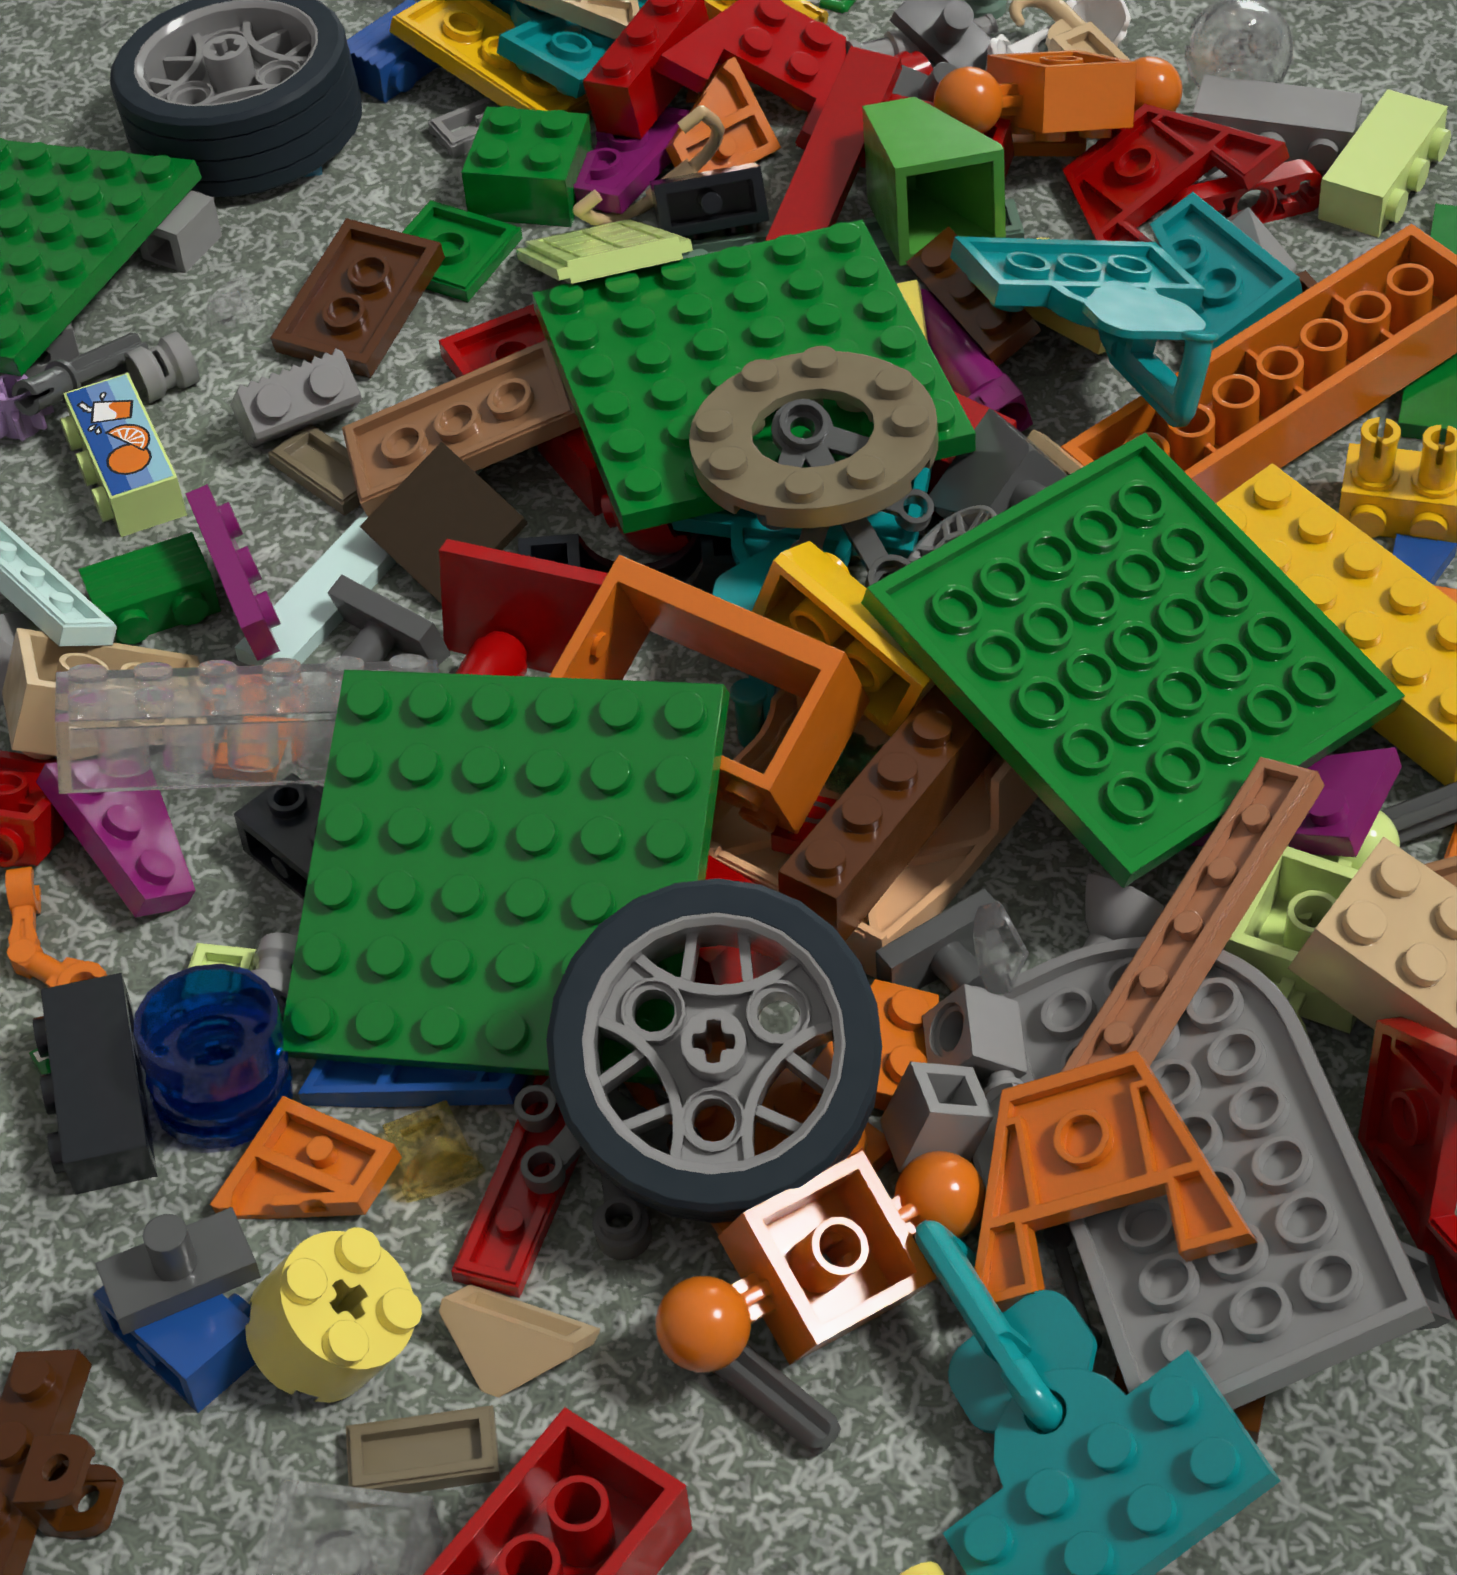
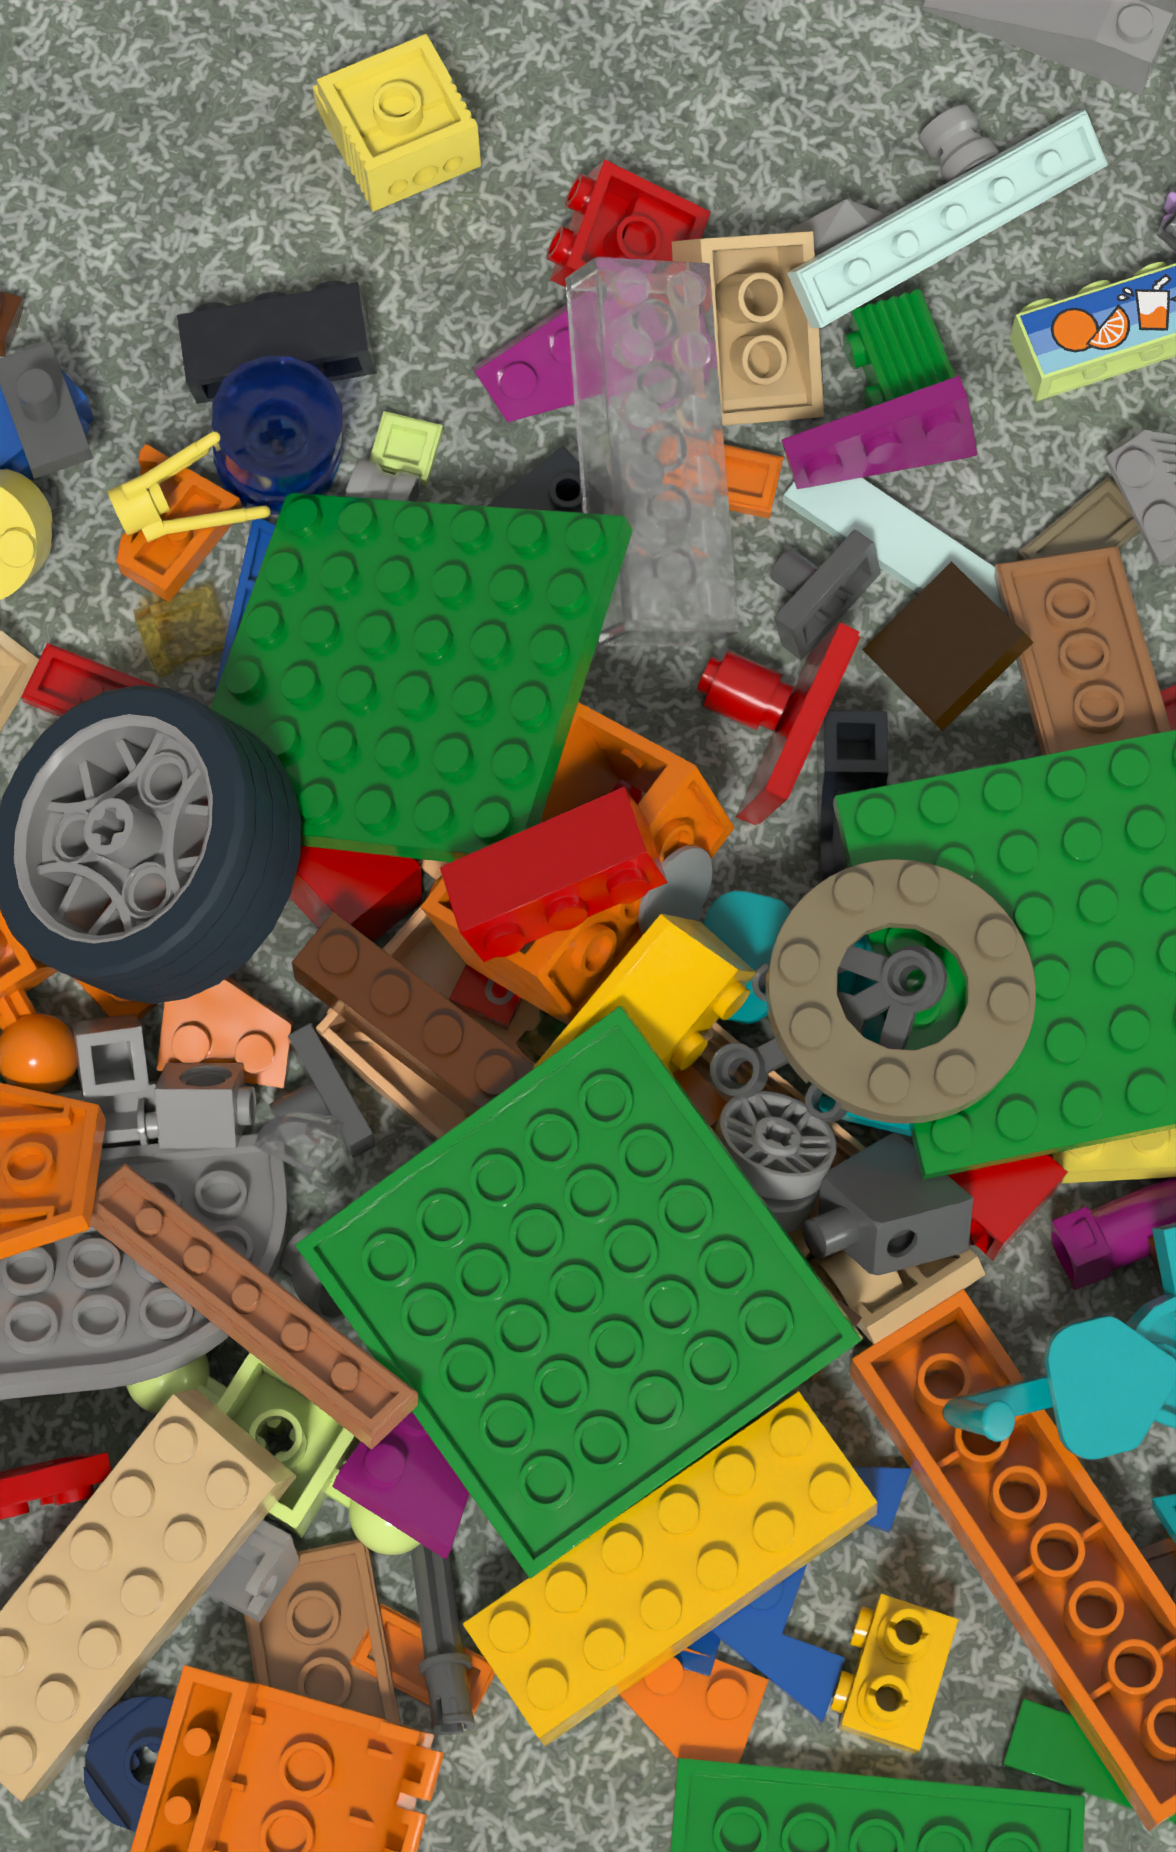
camera: 90 degrees right, 25 degrees up
(24, 946) = (515, 272): orange piece -> none
(292, 1170) = (143, 501): none -> light yellow plant
(748, 633) = (553, 875): none -> red brick

